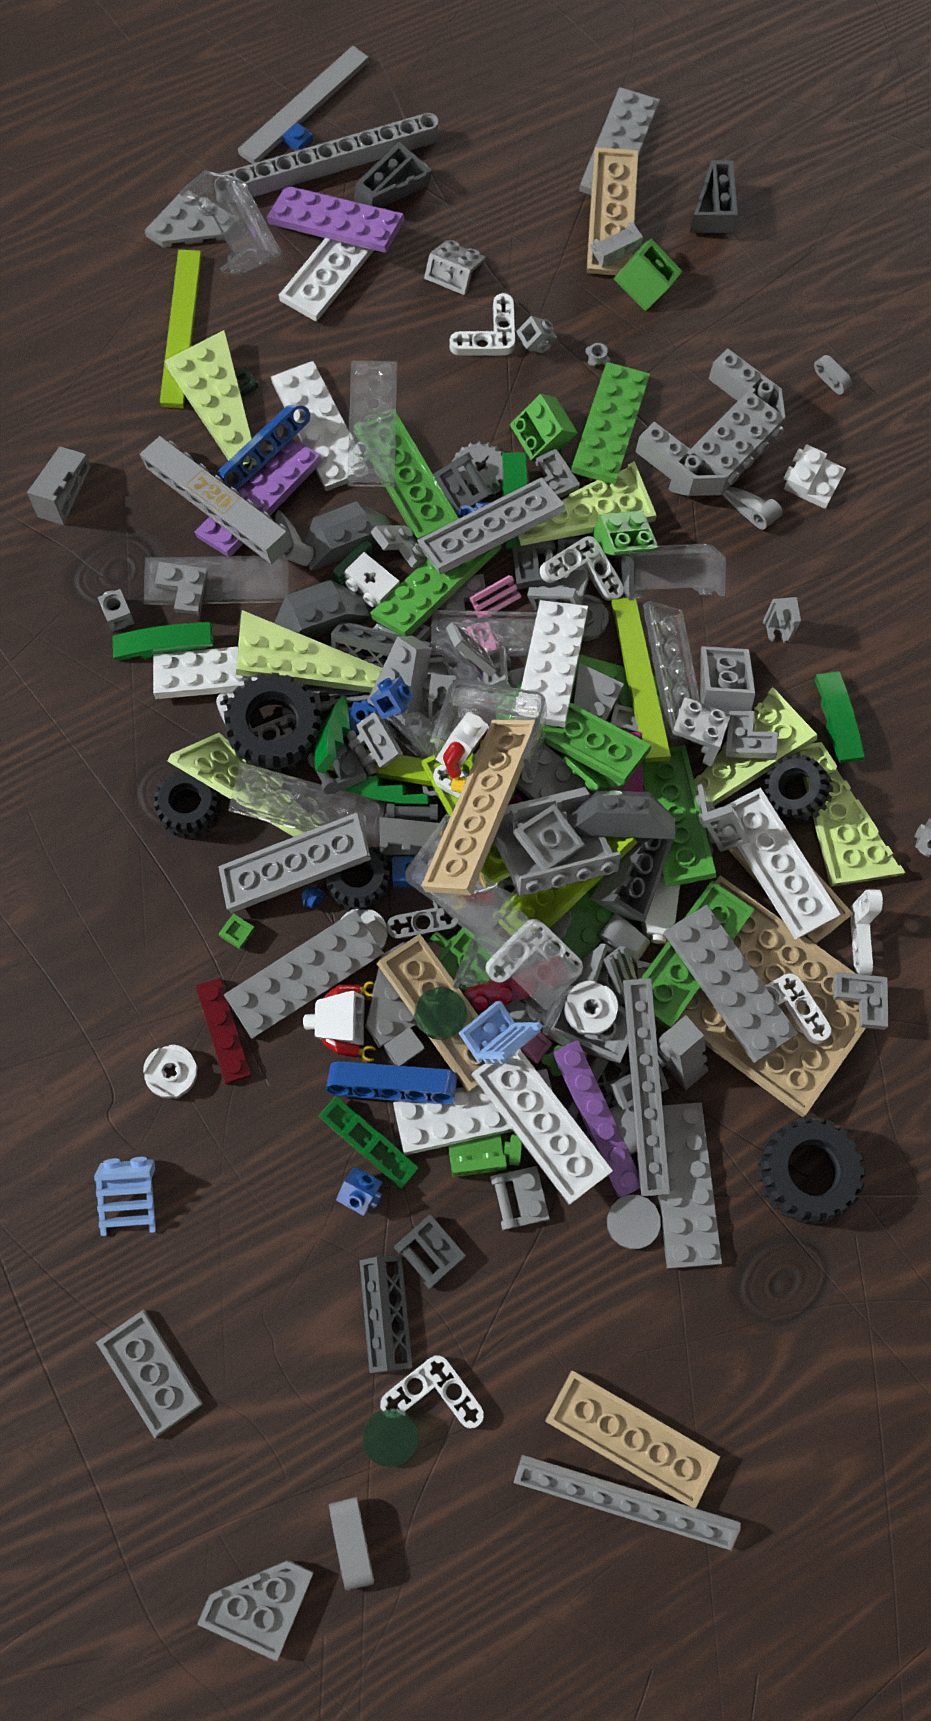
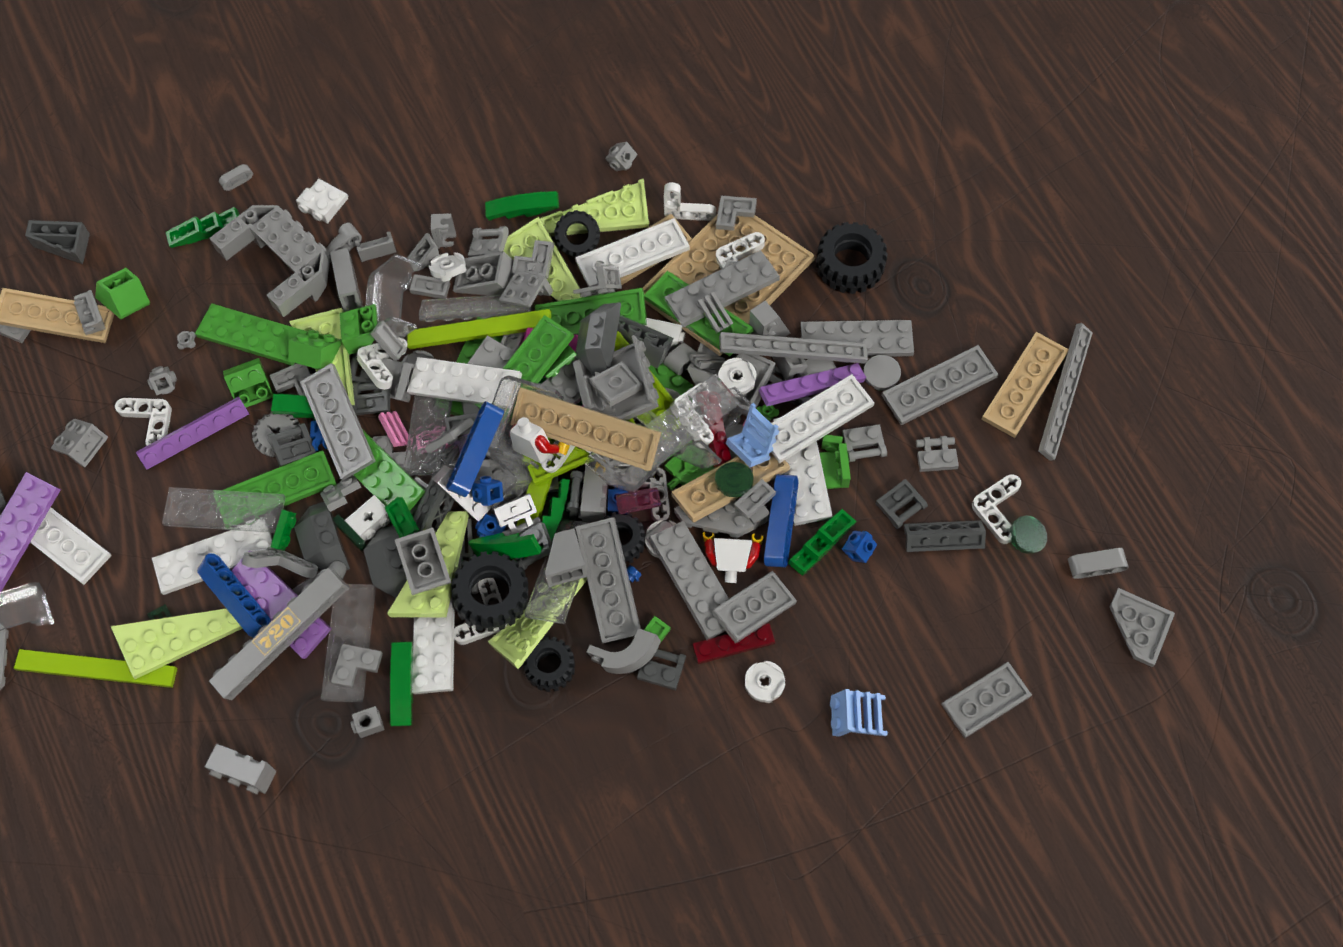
camera: 80 degrees left, 5 degrees down
(182, 938) = (662, 674): none -> dark grey plate
(202, 910) = (630, 659): none -> light grey arch
(269, 1052) = (754, 606): none -> light grey tile
(301, 638) = (422, 561): none -> light grey slope
(313, 803) = (565, 559): none -> light grey slope
(315, 486) = (282, 558): none -> light grey beam
(350, 489) = (282, 534): none -> green plate
(364, 612) = (401, 517): none -> green plate
(403, 897) = (638, 500): none -> clear pink brick
(414, 1042) = (755, 499): none -> light grey plate
(441, 672) = (475, 449): none -> blue beam
(473, 378) = (192, 433): none -> medium lavender plate
(502, 1303) = (937, 459): none -> light grey plate
(589, 487) = (313, 349): none -> bright green slope
(606, 568) = (388, 340): none -> light grey tile
(620, 1308) = (939, 385): none -> light grey plate
(667, 985) = (720, 307): none -> light grey tile
(694, 516) = (346, 279): none -> light grey slope
(702, 617) = (429, 286): none -> light grey plate
(721, 632) = (447, 266): none -> white plate
(749, 605) = (424, 251): none -> light grey slope
(752, 547) = (376, 248): none -> light grey hinge
(753, 347) = (200, 229): none -> green slope
(766, 679) = (487, 246): none -> light grey plate

